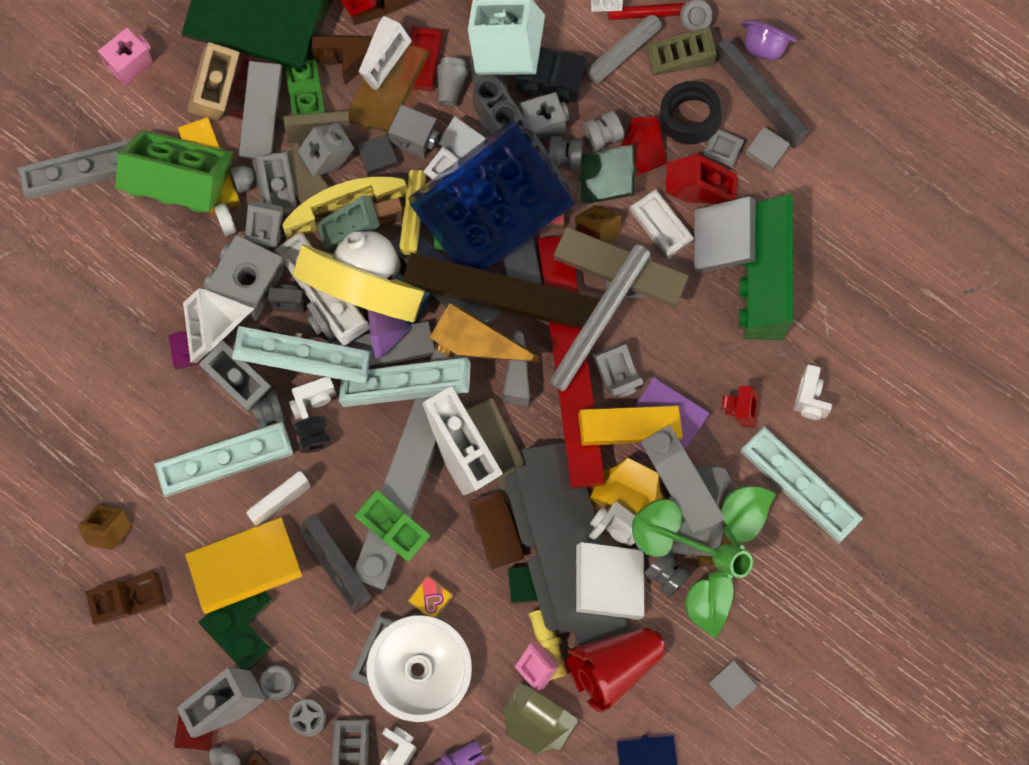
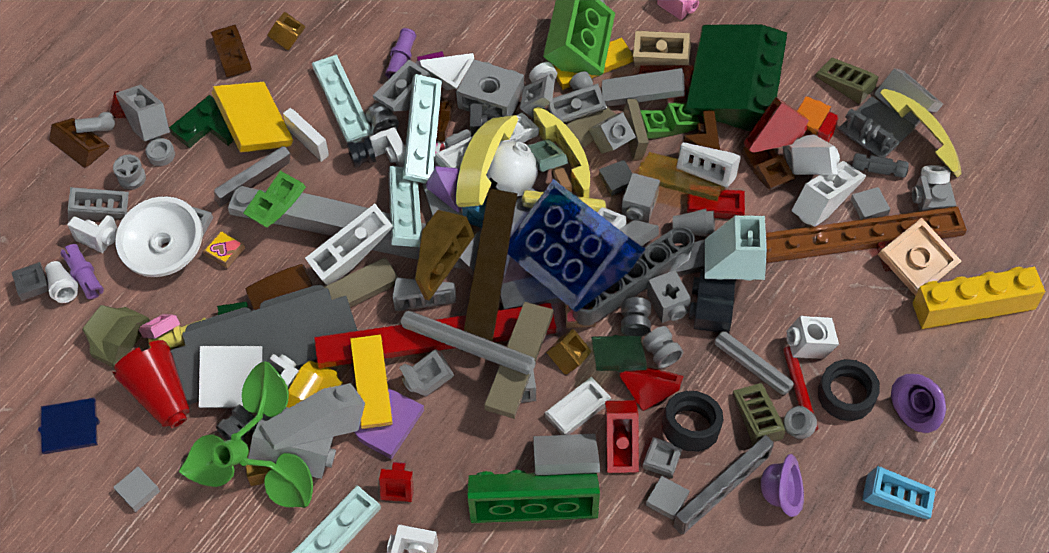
camera: 90 degrees right, 15 degrees down
(166, 385) = (401, 52): none -> medium lavender pin

